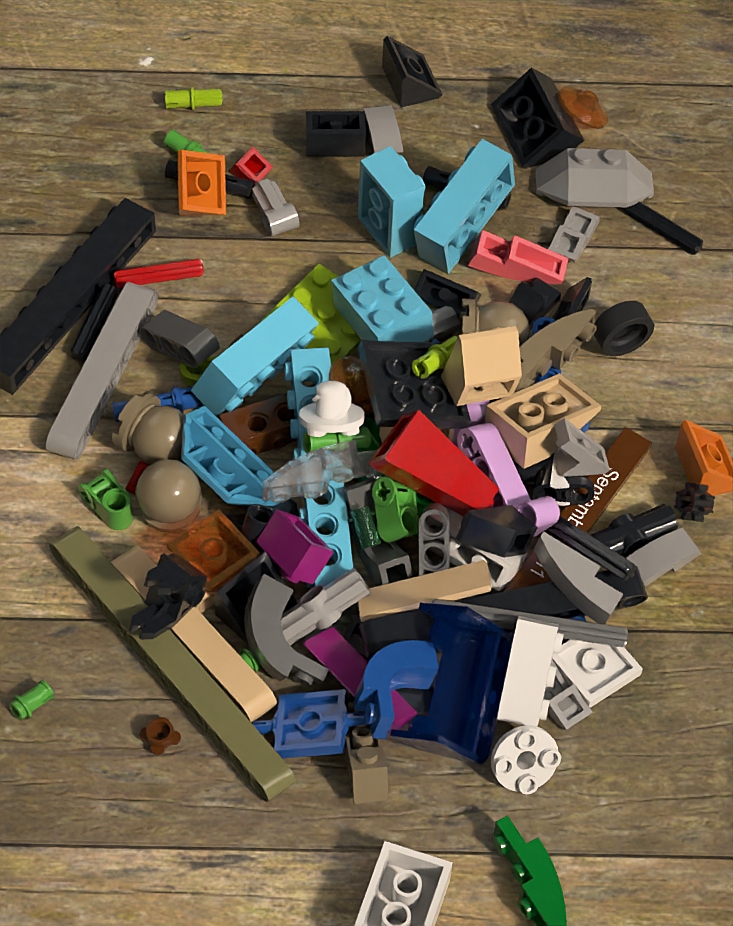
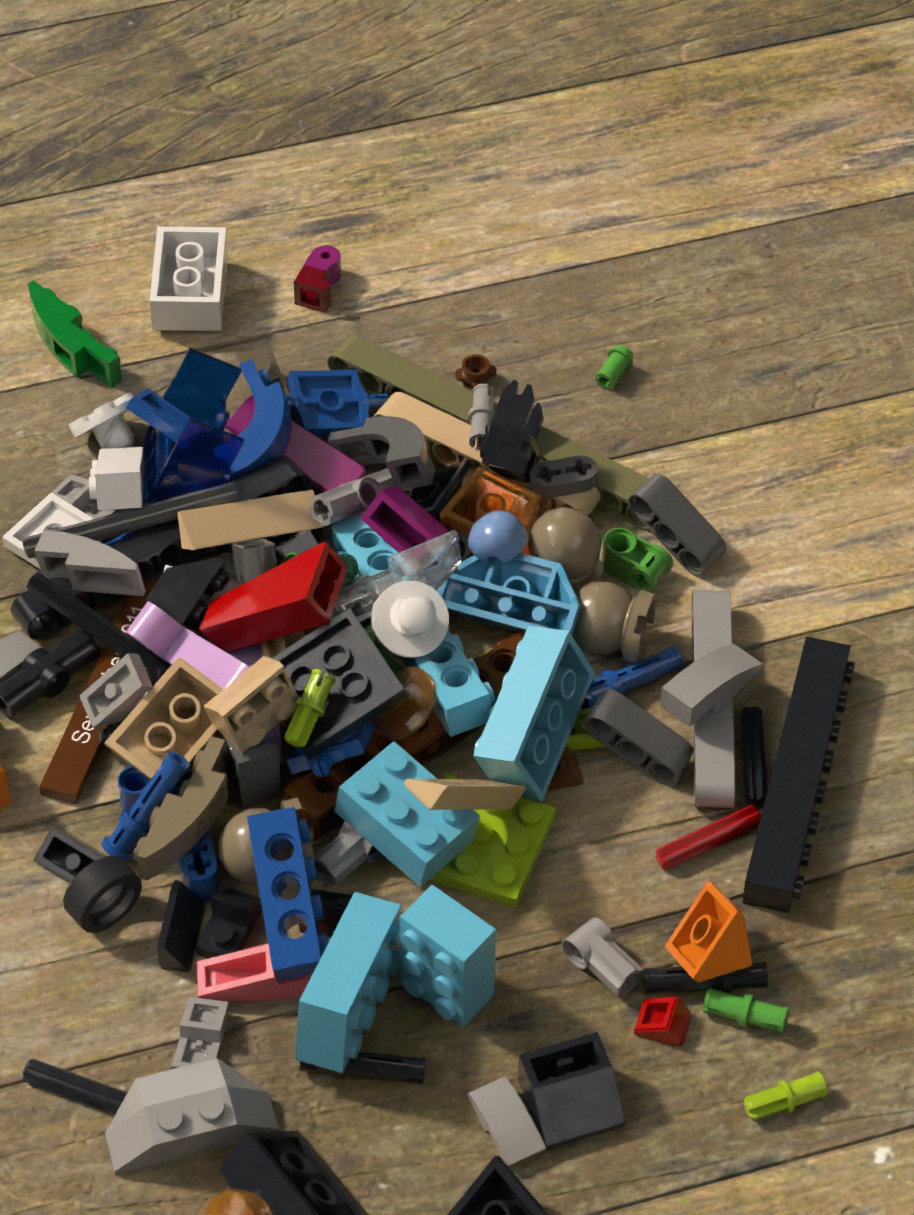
camera: 165 degrees right, 5 degrees down
(60, 505) = (677, 524): none -> dark grey beam
(107, 346) = (708, 683): none -> light grey slope
(136, 568) = (563, 476): none -> dark grey beam
(183, 642) = (481, 414): none -> light grey pin
(225, 497) = (497, 535): none -> medium blue hair
(271, 888) = (316, 277): none -> dark red leg
(344, 278) = (464, 793): none -> tan slope
(471, 724) = (159, 413): none -> blue tile
(491, 258) = (268, 835): none -> blue brick
(584, 372) = (135, 820): none -> blue pin
(631, 384) = (66, 854): none -> black slope

